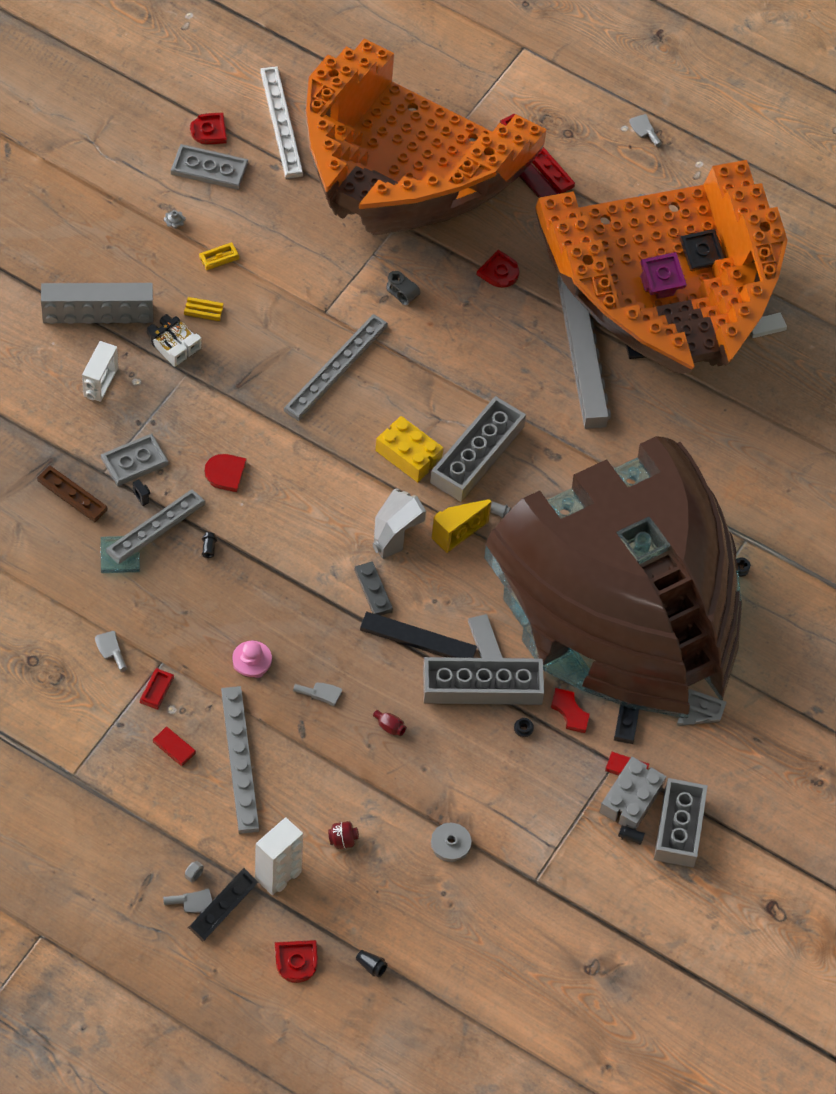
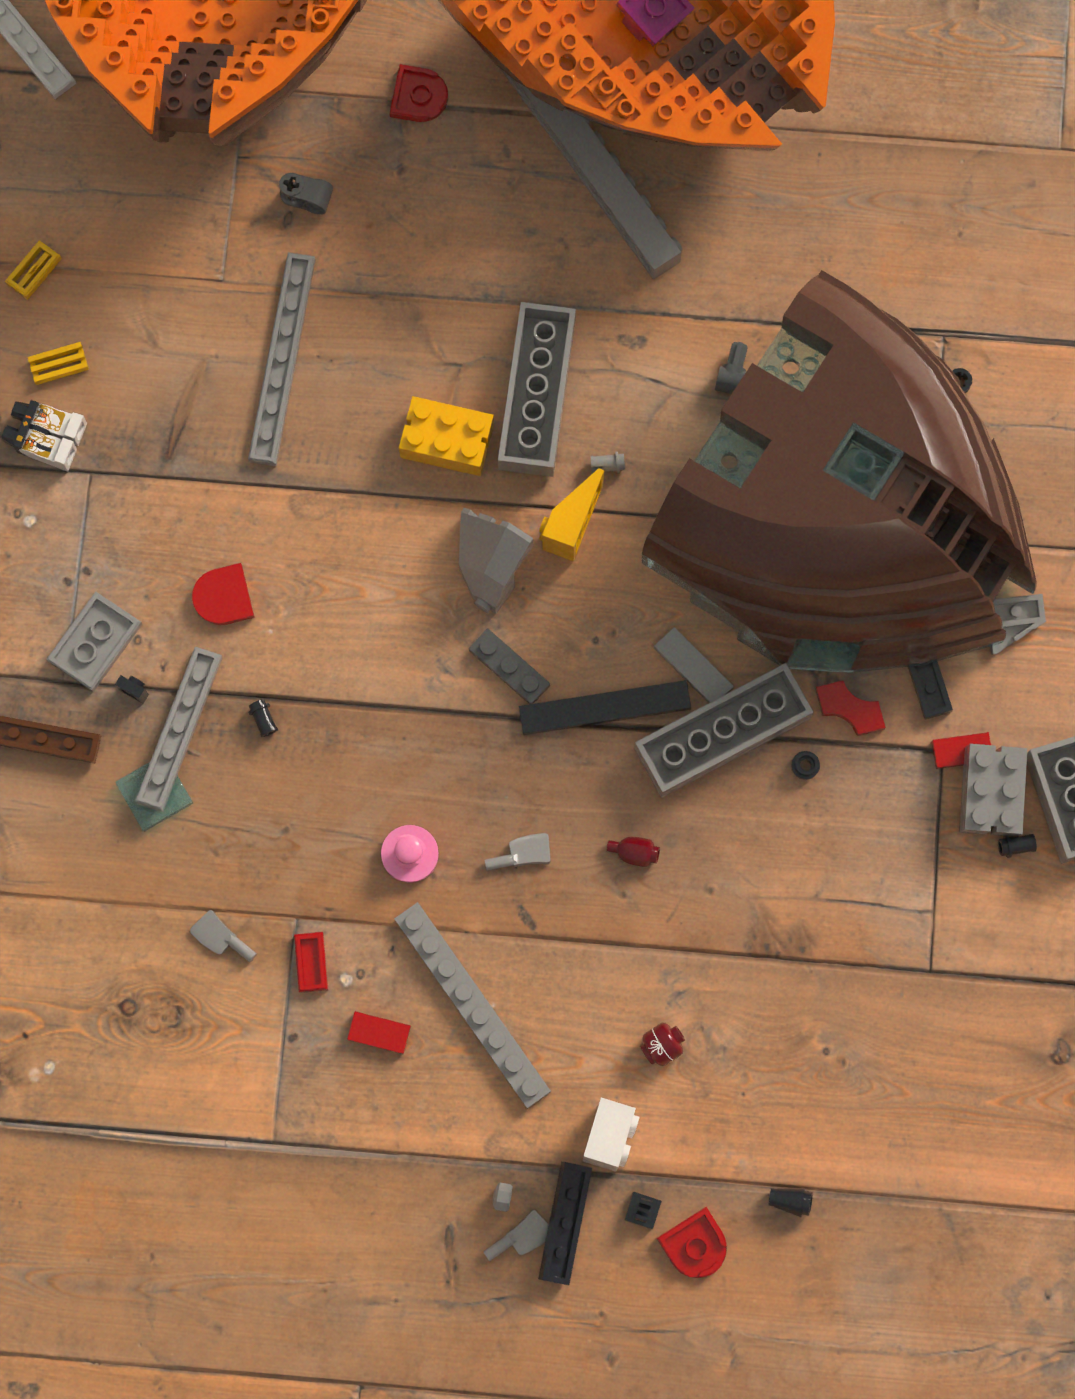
camera: 20 degrees left, 20 degrees up
(275, 924) = (643, 1210): none -> black tile
(451, 851) = (793, 991): light grey plate -> none

